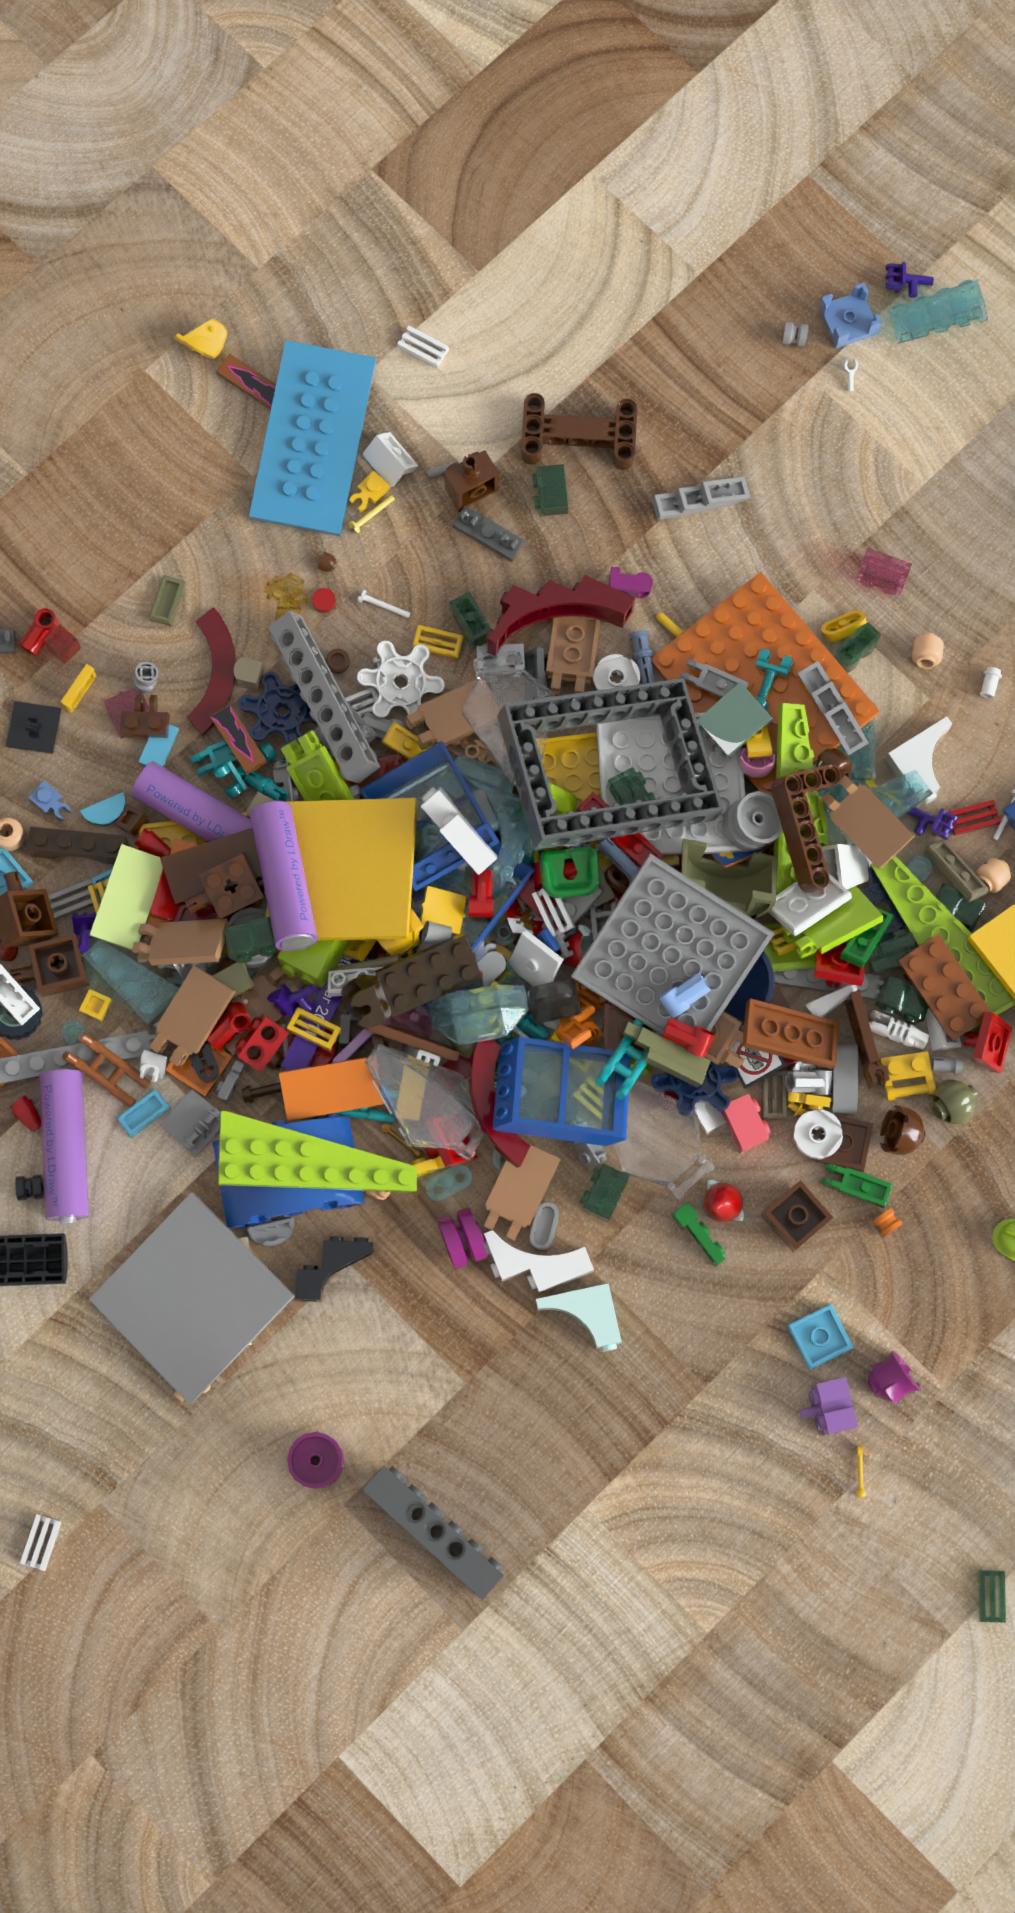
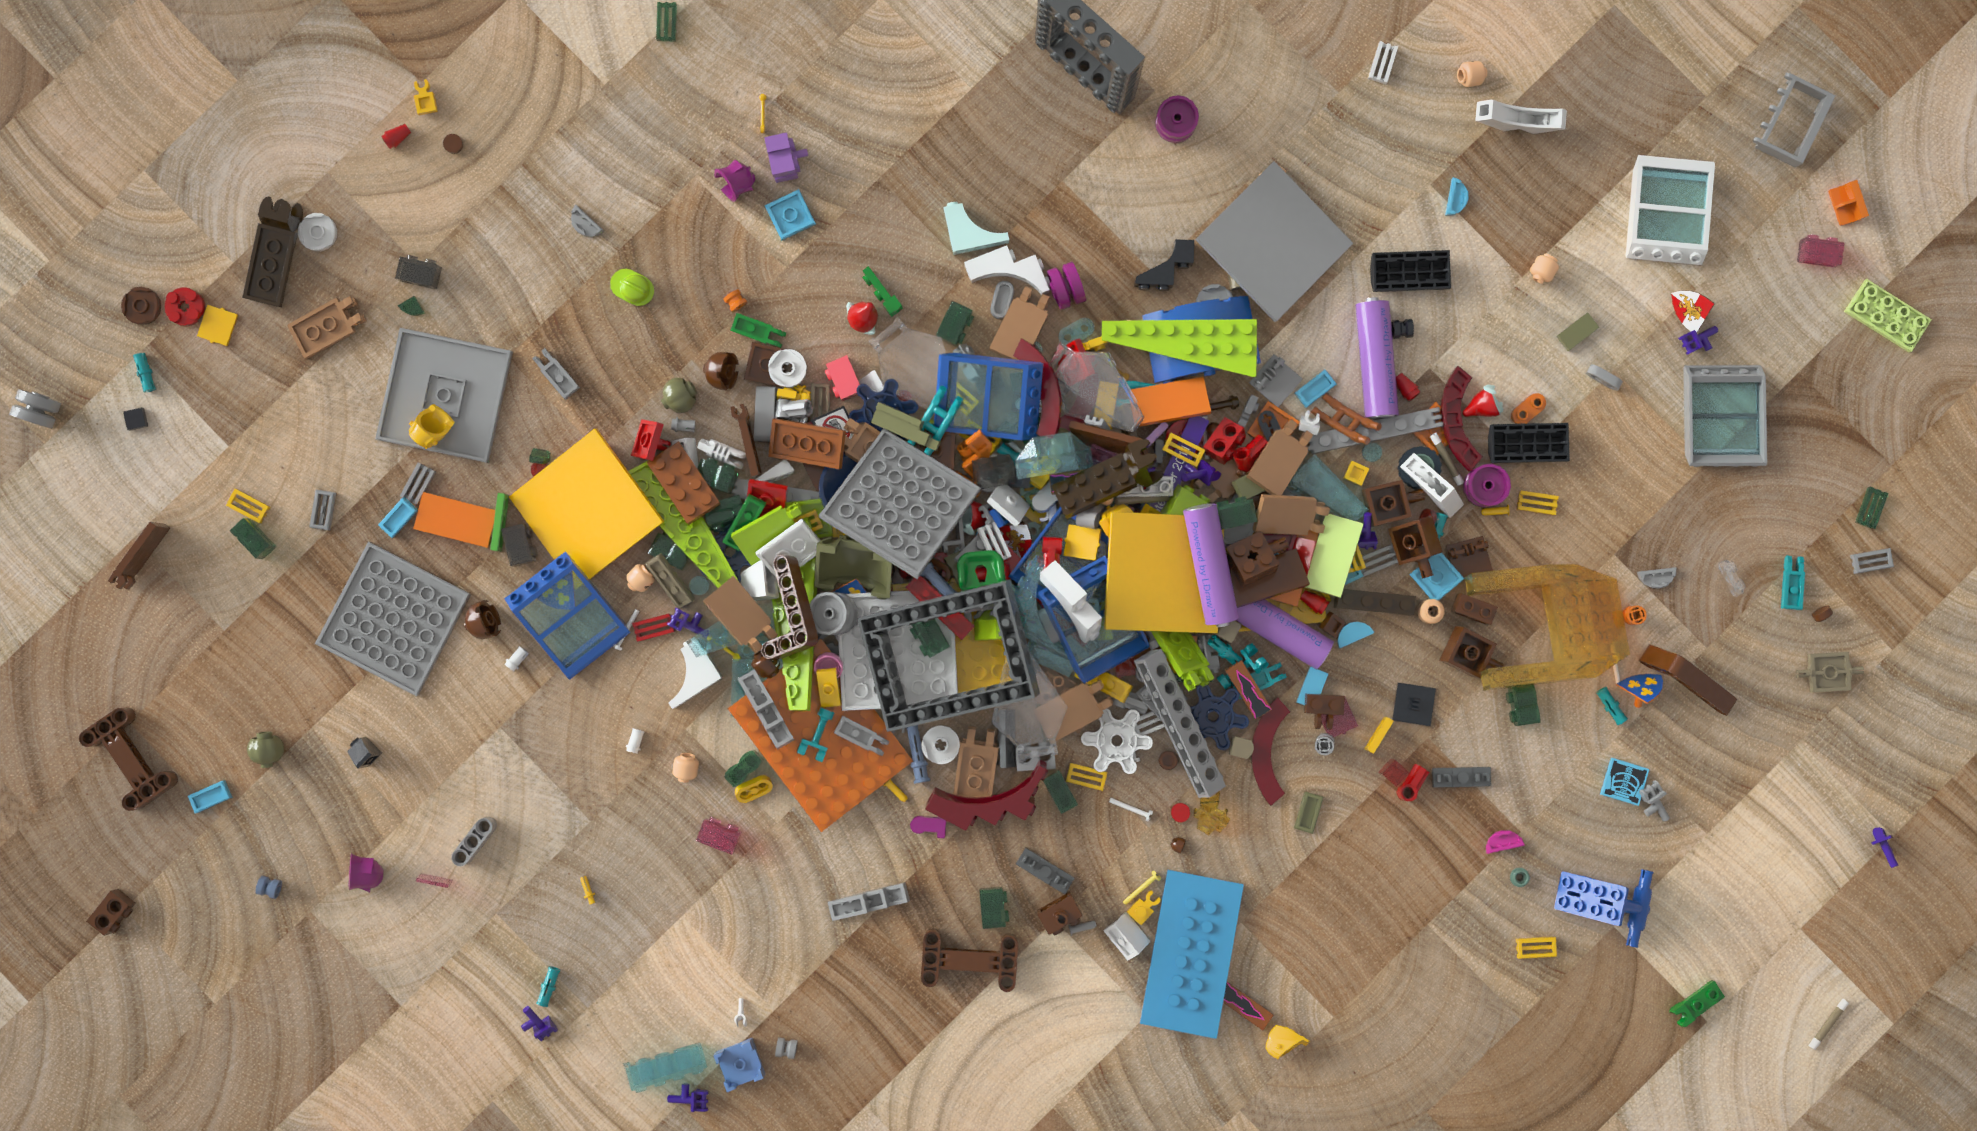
camera: 175 degrees left, 10 degrees up
(48, 799) = (1399, 643): medium blue plate -> none
(427, 339) = (1114, 1045): white tile -> none
(679, 998) = (895, 466): light blue piece -> none
(694, 1039) = (883, 437): red piece -> none
(733, 720) = (846, 697): sand green panel -> none
(796, 1216) = (805, 303): reddish brown brick -> none
(907, 1068) = (715, 423): yellow plate -> none

